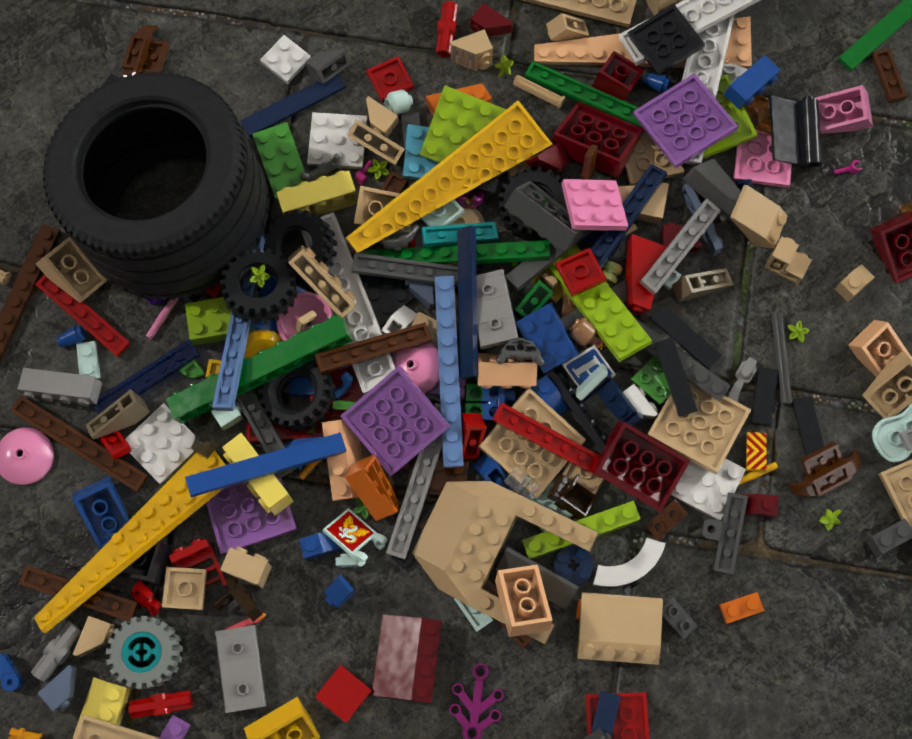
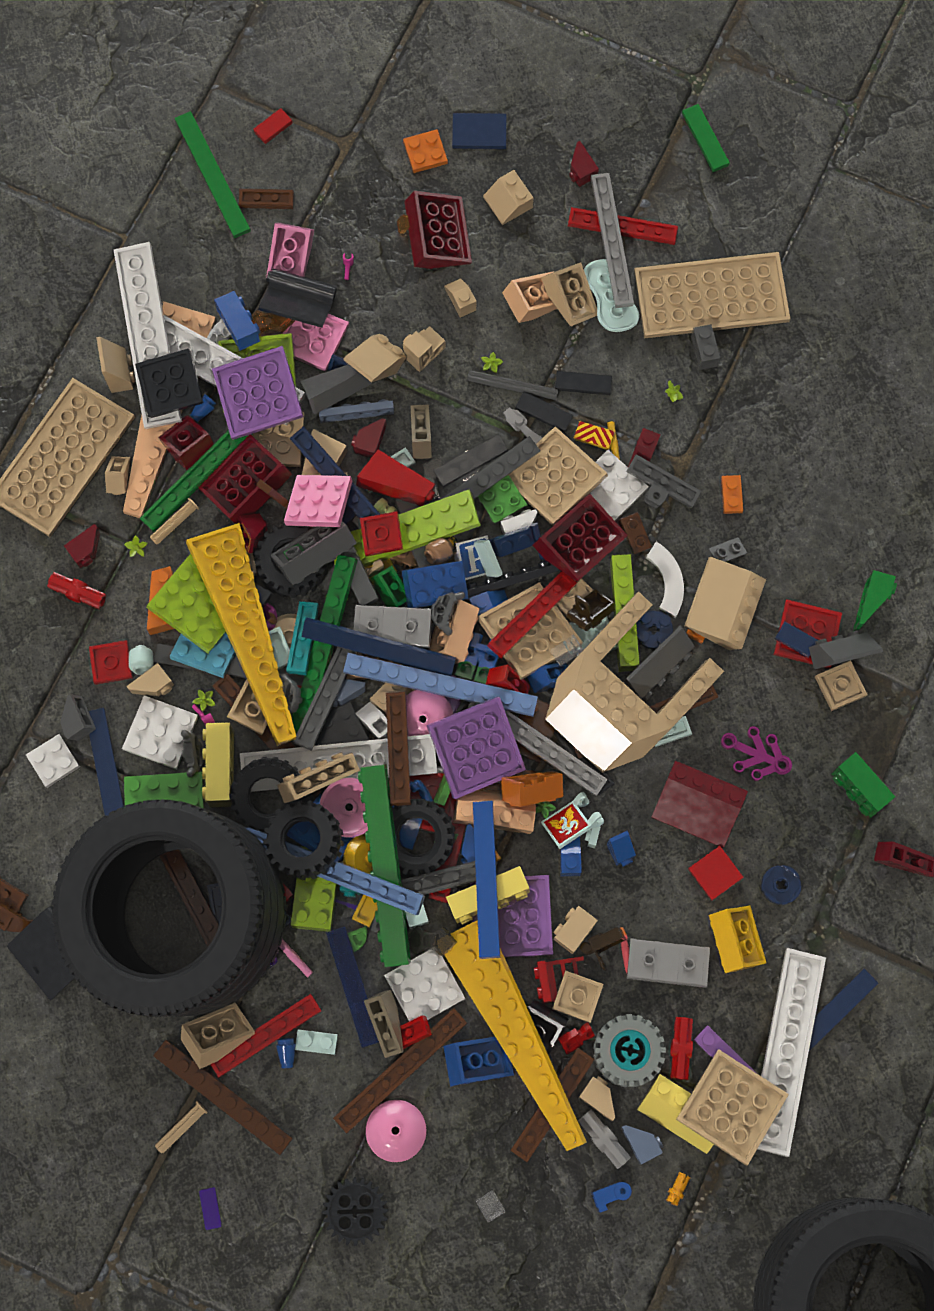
camera: 75 degrees left, 0 degrees up
(59, 386) = (336, 1075): light grey brick -> none
(259, 275) = (296, 835): lime plant -> none
(302, 321) = (353, 805): tan tile -> none
(375, 141) = (179, 692): tan brick -> none
(472, 51) = (113, 569): tan slope -> none
(523, 600) = (682, 675): light nougat brick -> none
(675, 377) = (506, 481): black tile -> none
(679, 246) = (382, 437): light grey plate -> none
(825, 471) = (629, 381): reddish brown plate -> none

